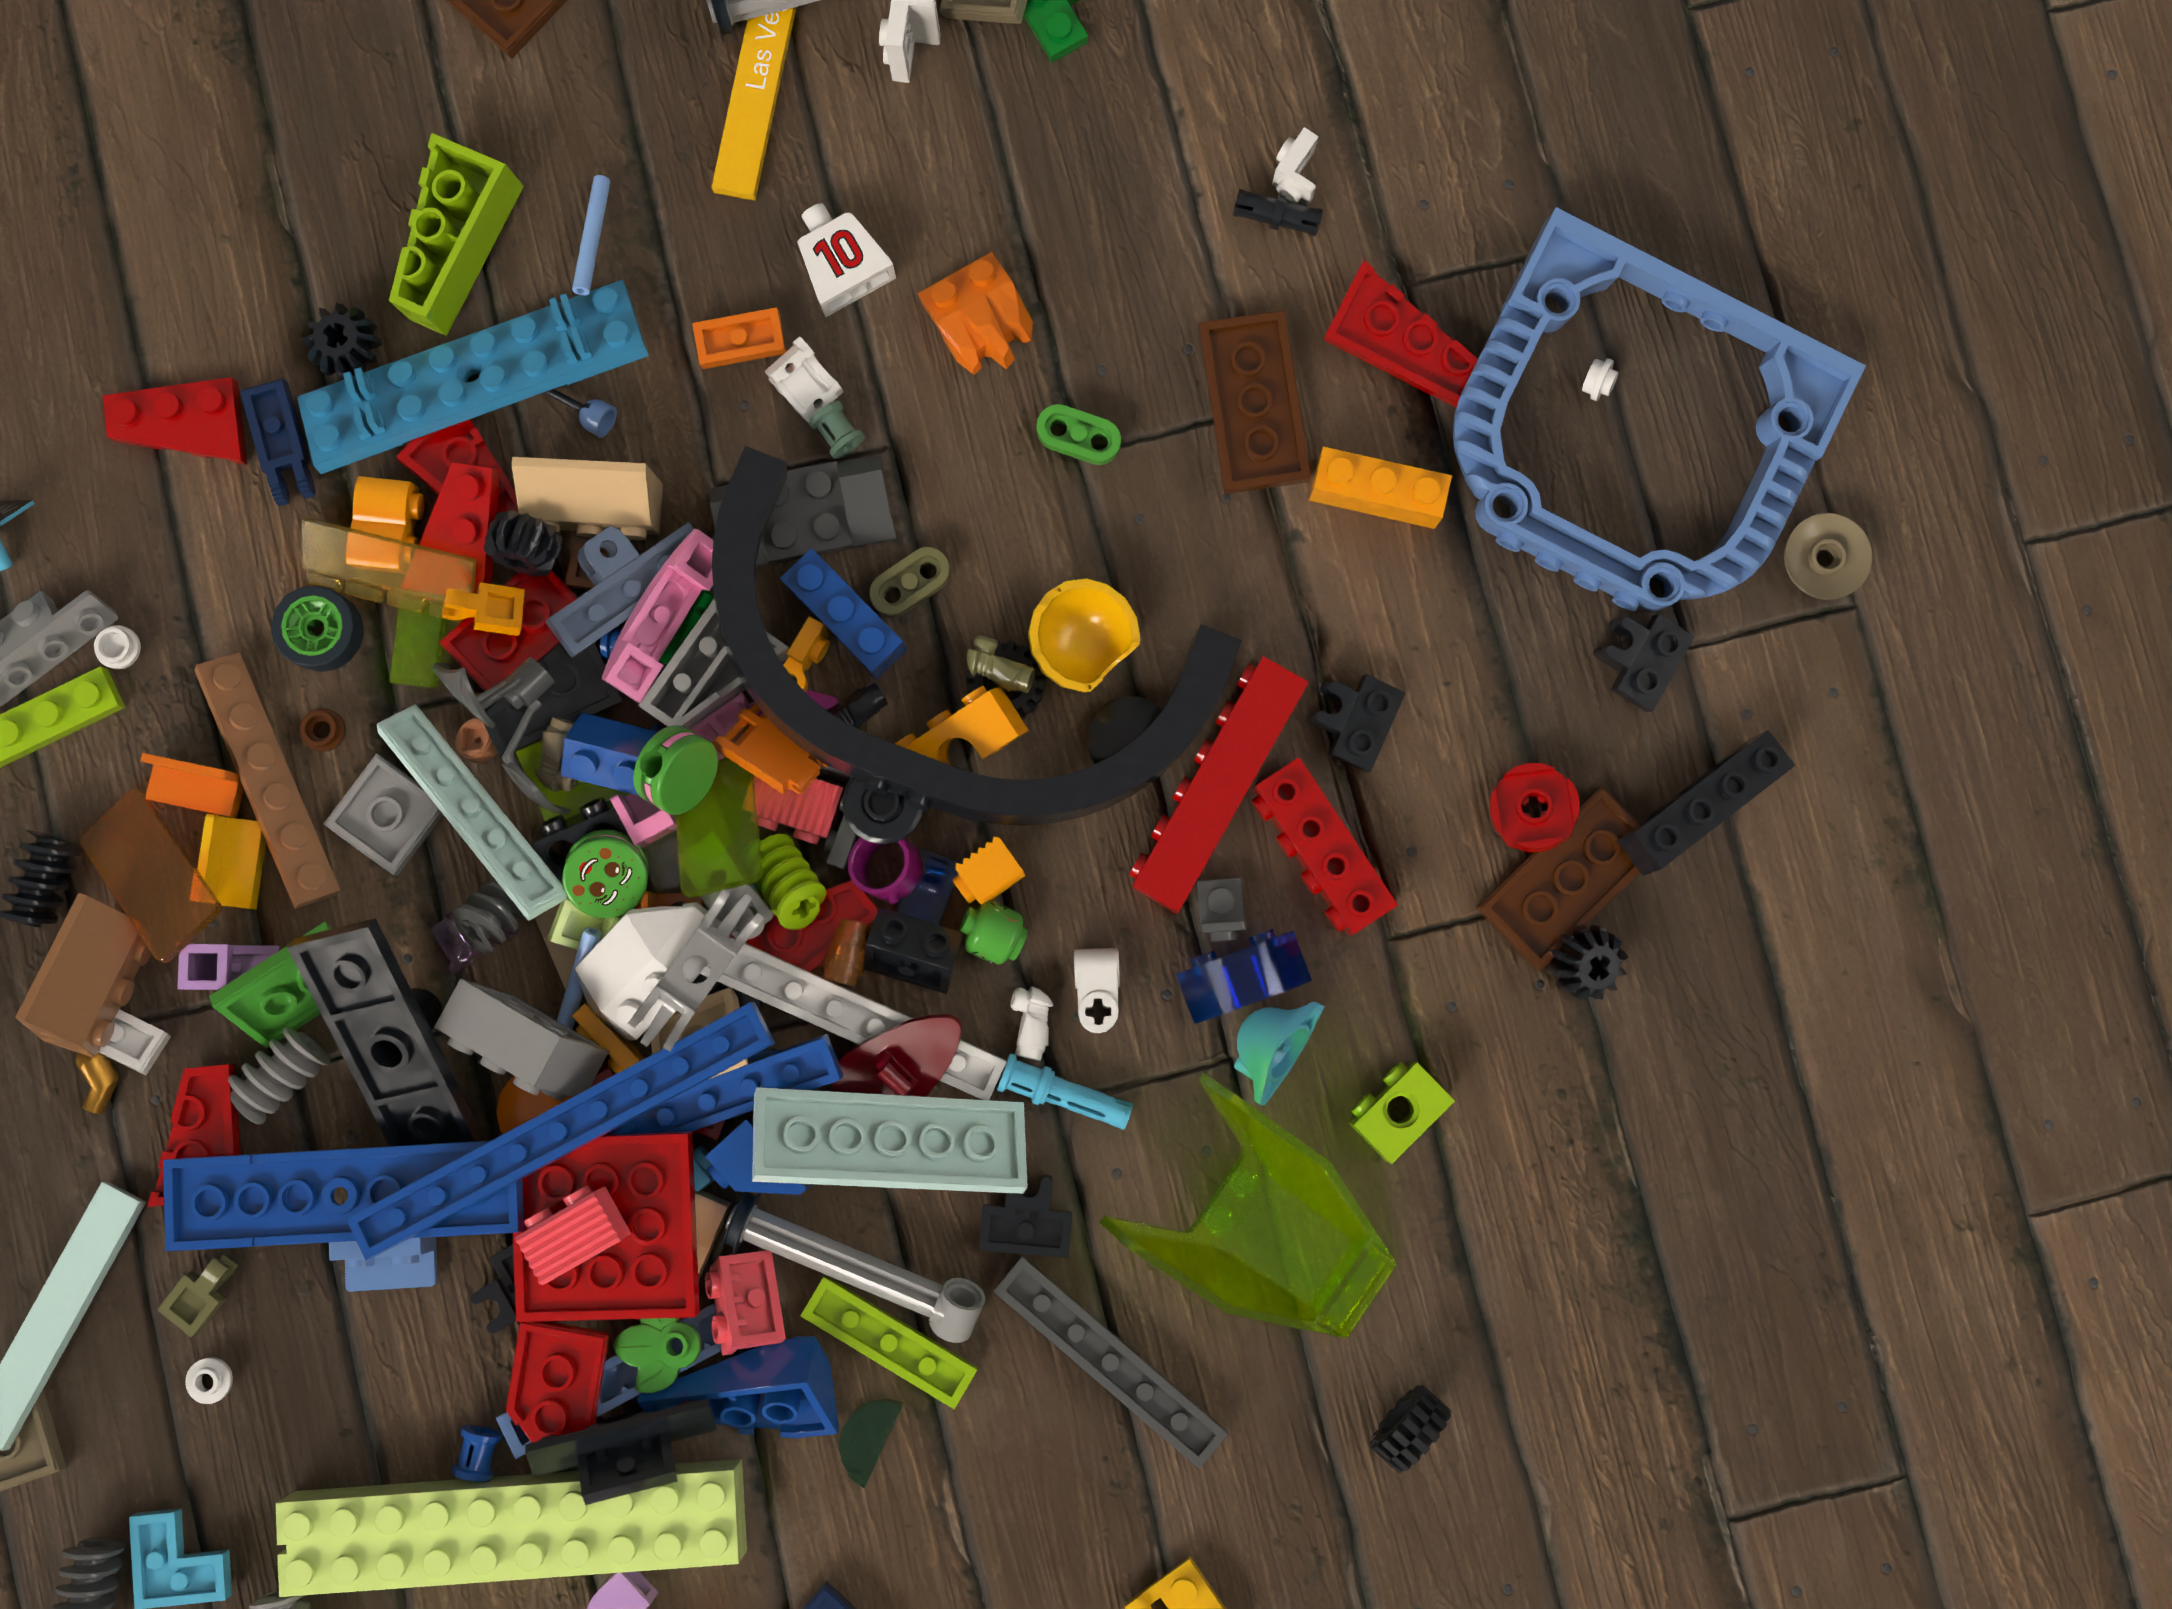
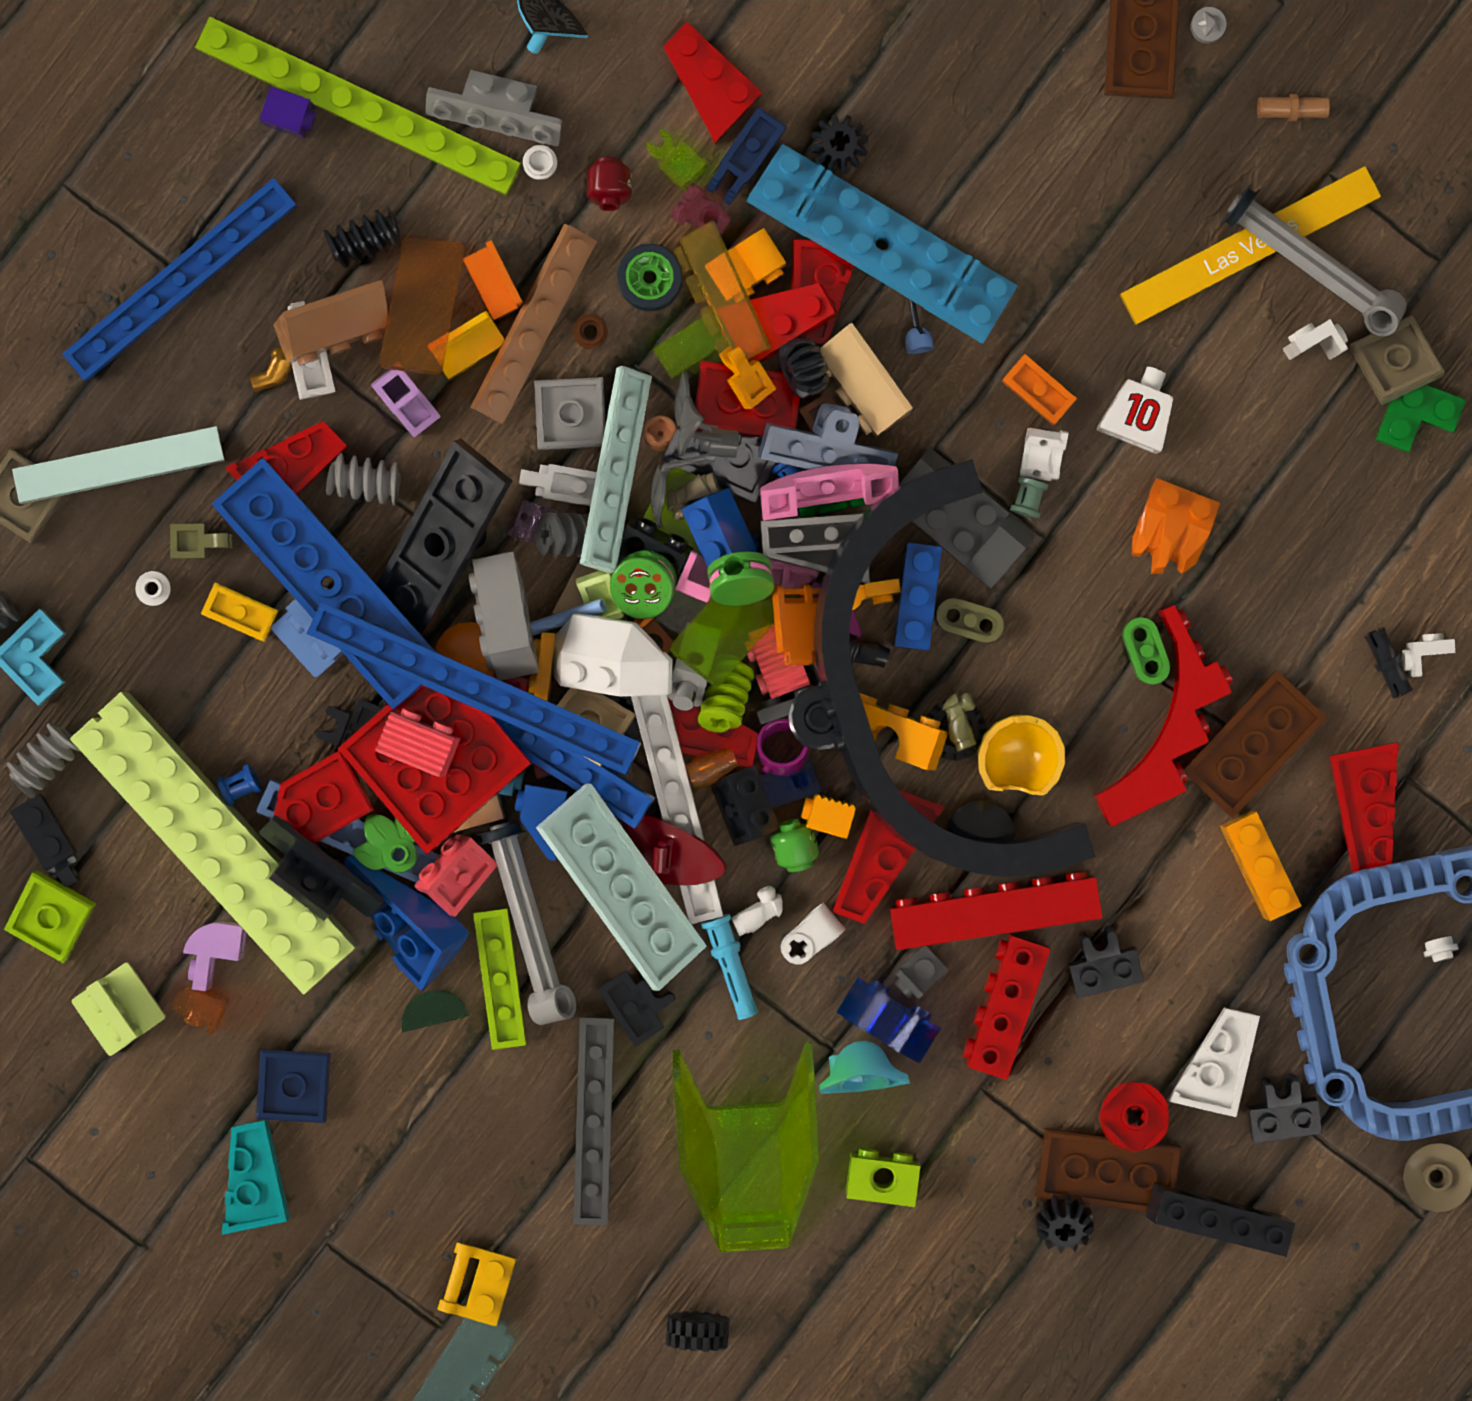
camera: 55 degrees right, 5 degrees up
(190, 594) = (609, 183): none -> dark red head
(230, 513) = (678, 162): none -> clear neon green plate
(268, 997) = (414, 443): bright green tile -> none
(285, 527) = (695, 207): none -> clear pink plate
(305, 1310) = (240, 612): none -> yellow plate
(443, 880) = (561, 483): none -> white hinge
(452, 232) = (963, 157): lime wedge -> none
(591, 235) = (1030, 244): light blue piece -> none
(686, 996) = (654, 698): light grey piece -> none
(1077, 866) = (877, 863): none -> red wing
(1150, 413) = (1156, 776): none -> red arch
(1548, 683) = (1220, 1065): none -> white wing

